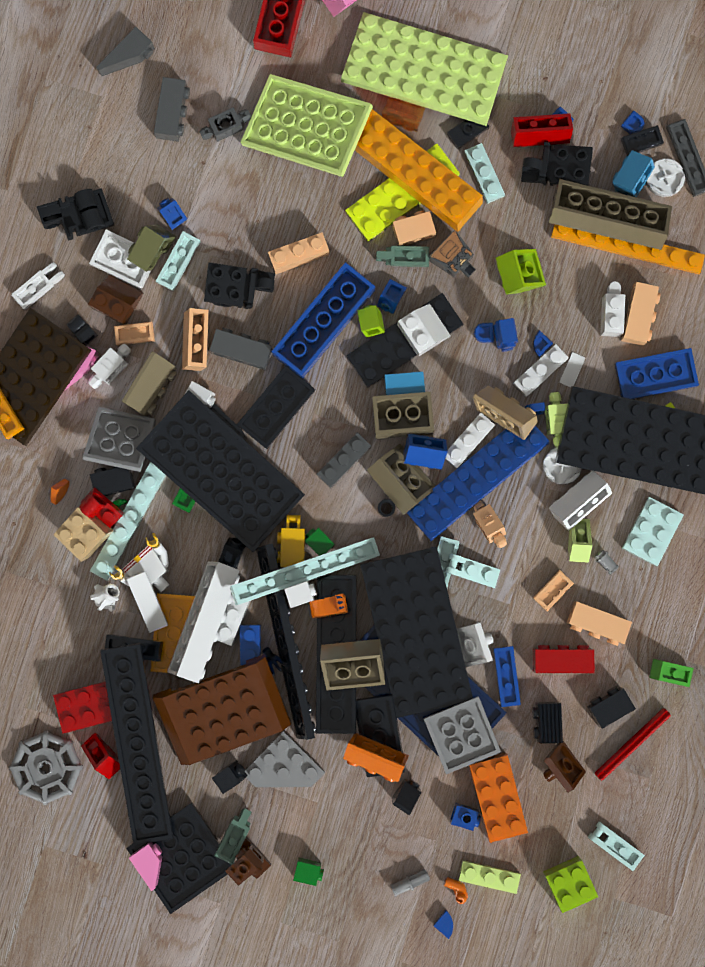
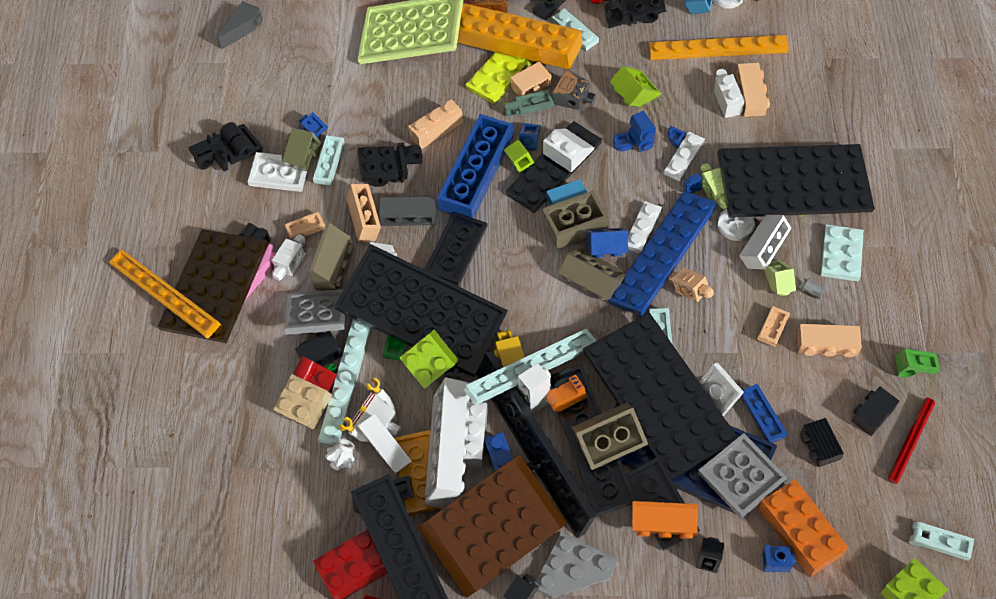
camera: 15 degrees left, 25 degrees down
(37, 286) = (203, 213): white hinge -> none
(59, 490) = (268, 377): orange tile -> none
(115, 299) = (279, 206): reddish brown slope -> none
(171, 109) = (290, 52): dark grey brick -> none
(208, 132) = (340, 51): dark grey piece -> none
(212, 529) = (429, 359): none -> lime brick
(318, 541) = (534, 343): green brick -> none
(344, 460) = (534, 272): dark grey brick -> none
(386, 501) = (588, 294): black beam -> none
(473, 571) = (691, 329): light aqua plate -> none
(505, 411) = (667, 190): tan slope -> none
(563, 659) = (810, 382): red brick -> none
(564, 767) = (855, 477): reddish brown tile -> none
(572, 369) = (711, 149): white sticker -> none
(610, 214) = (694, 23): dark tan brick -> none
(656, 374) = (788, 128): blue plate -> none

